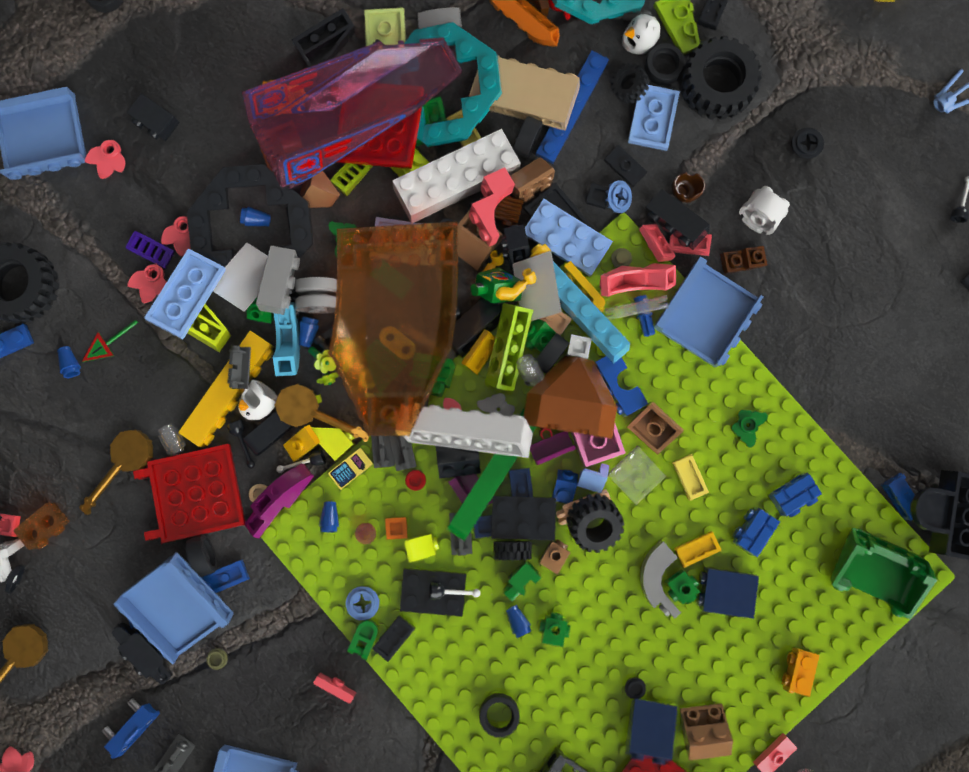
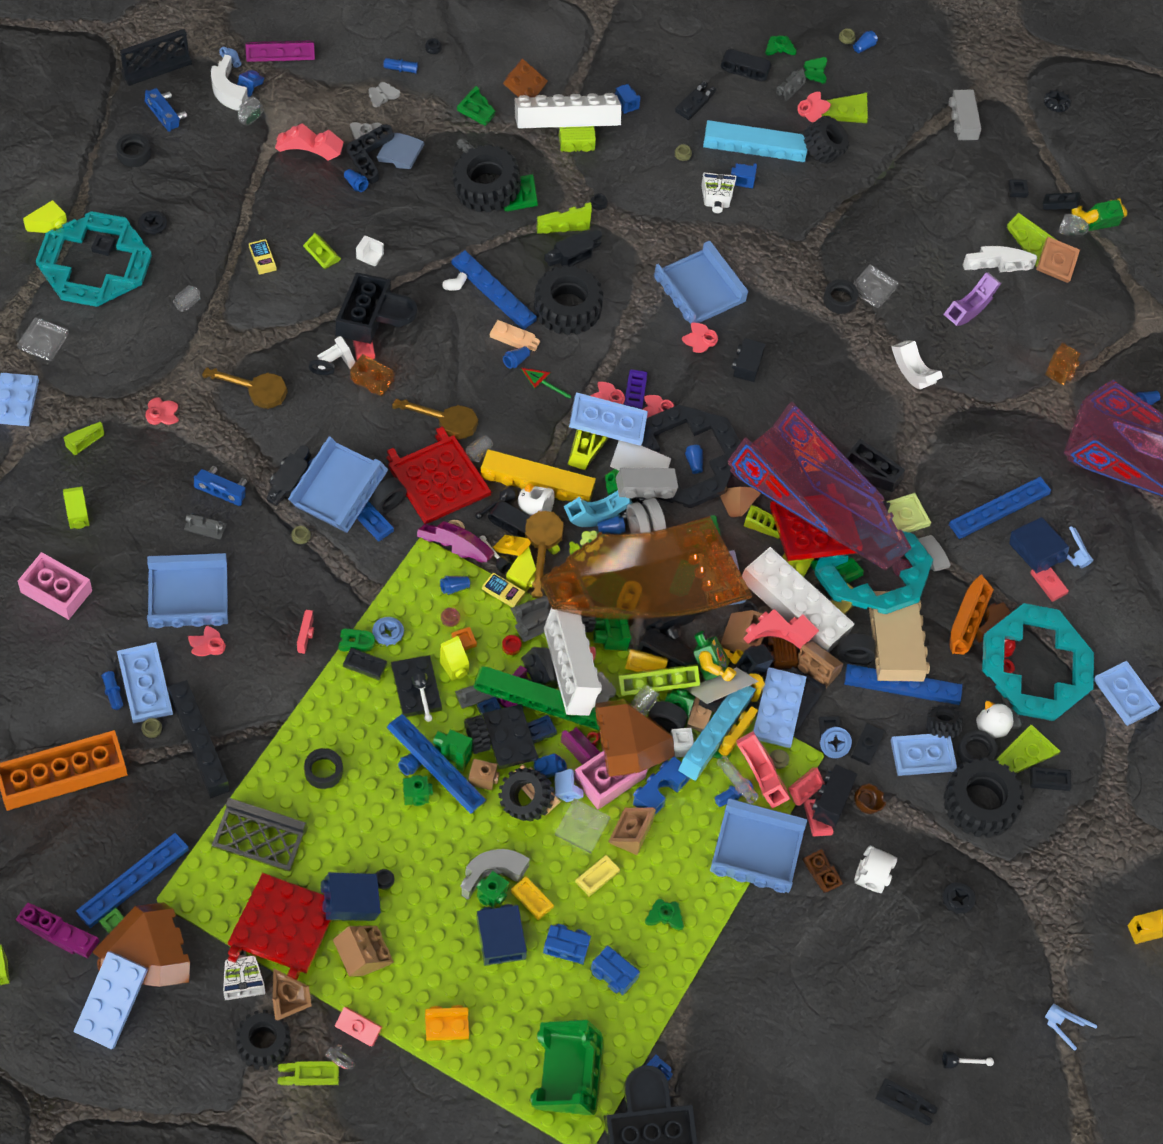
camera: 65 degrees right, 25 degrees down
(39, 355) = (514, 336): none -> light nougat hinge
(240, 359) = (552, 477): dark grey hinge -> none
(532, 602) = (436, 763): none -> blue plate

